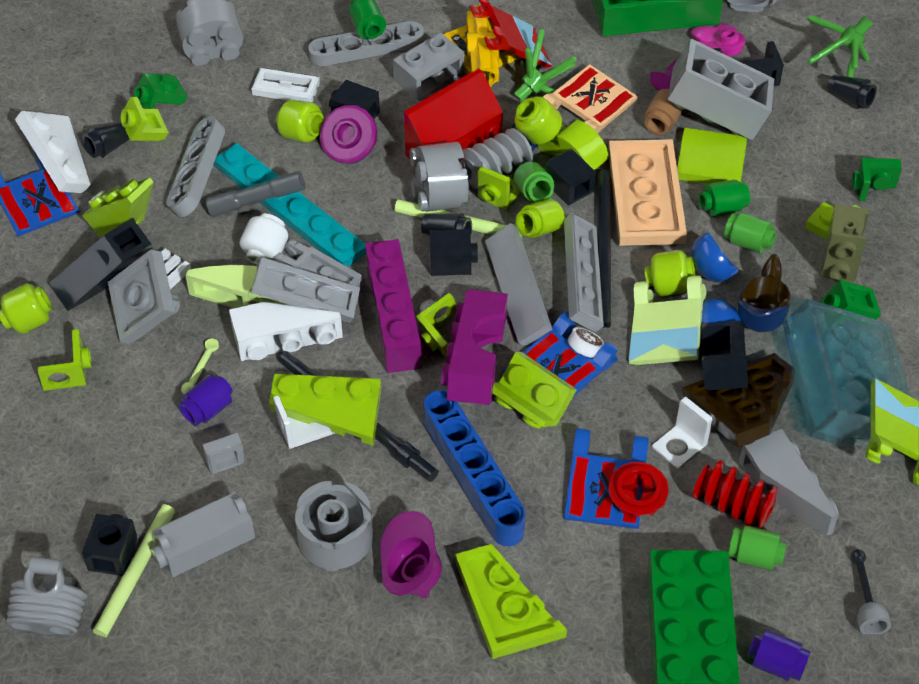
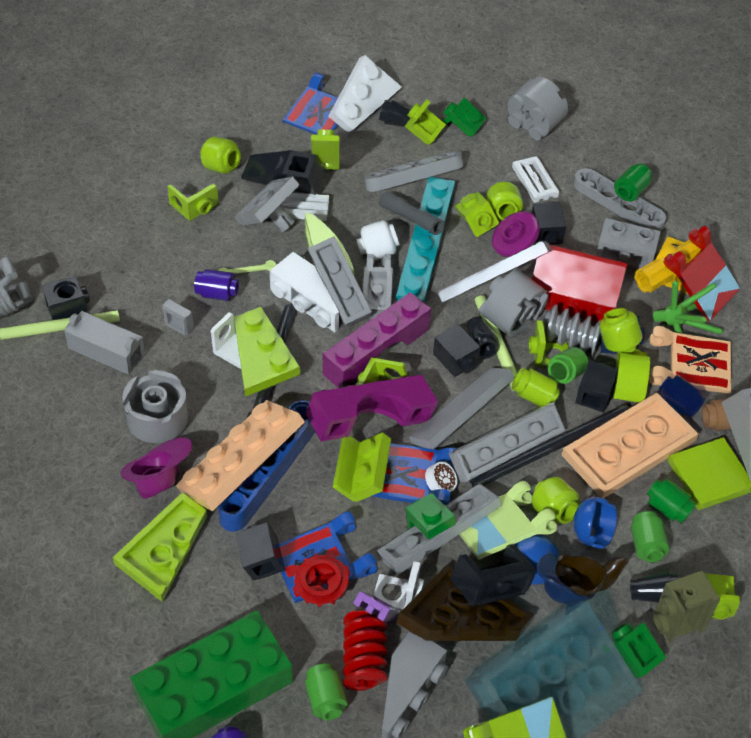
camera: 55 degrees right, 0 degrees up
(293, 147) = (477, 213): none -> lime bracket
(398, 167) = (494, 271): none -> tile
(455, 478) = (239, 454): none -> light nougat plate
(571, 521) = (260, 551): none -> black brick
(624, 126) = (682, 395): none -> clear blue brick
(628, 369) = (429, 516): none -> green bracket
(639, 373) = (414, 545): none -> light grey tile
(705, 456) = (376, 606): none -> medium lavender tile
(803, 256) = (650, 587): none -> black cone

